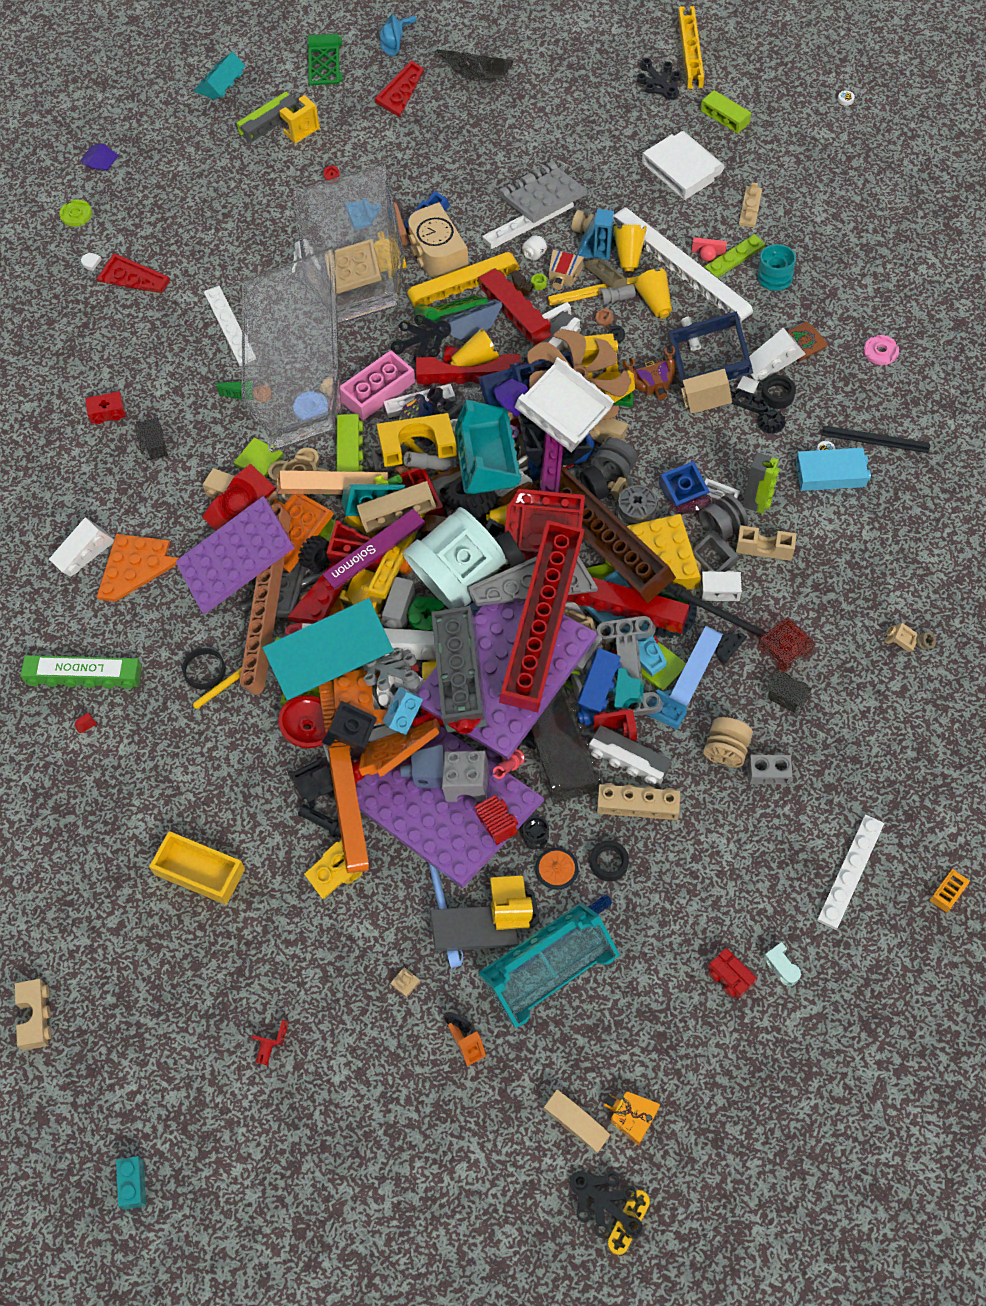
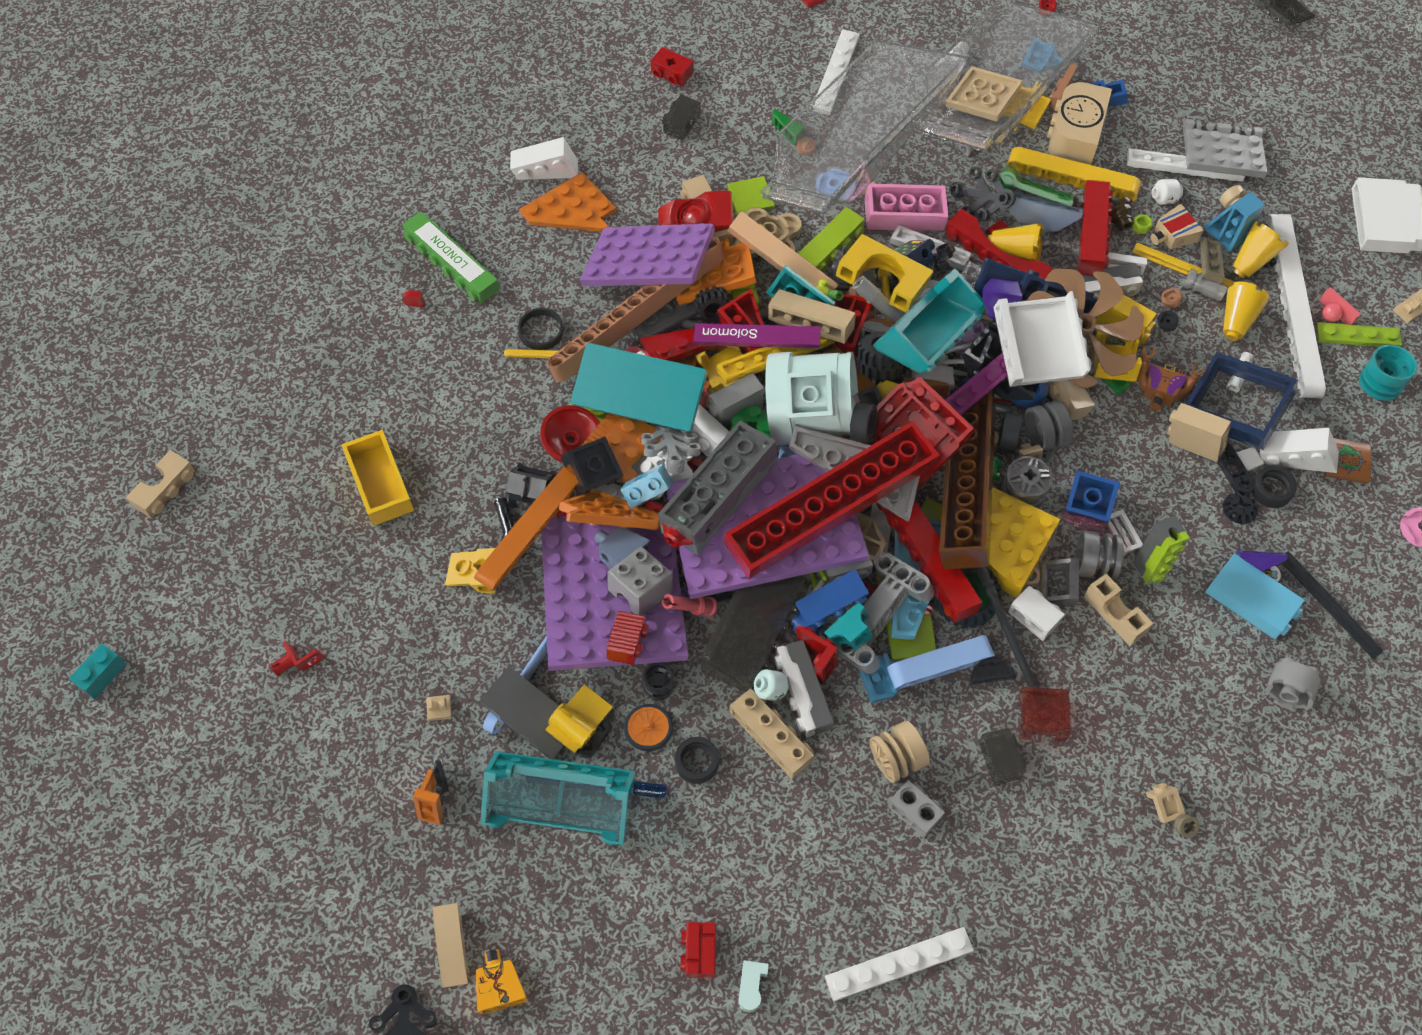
camera: 40 degrees right, 0 degrees up
(610, 771) = (770, 685): none -> light aqua head
(818, 442) = (1260, 559): none -> dark purple slope
(904, 504) = (1293, 685): none -> light grey brick

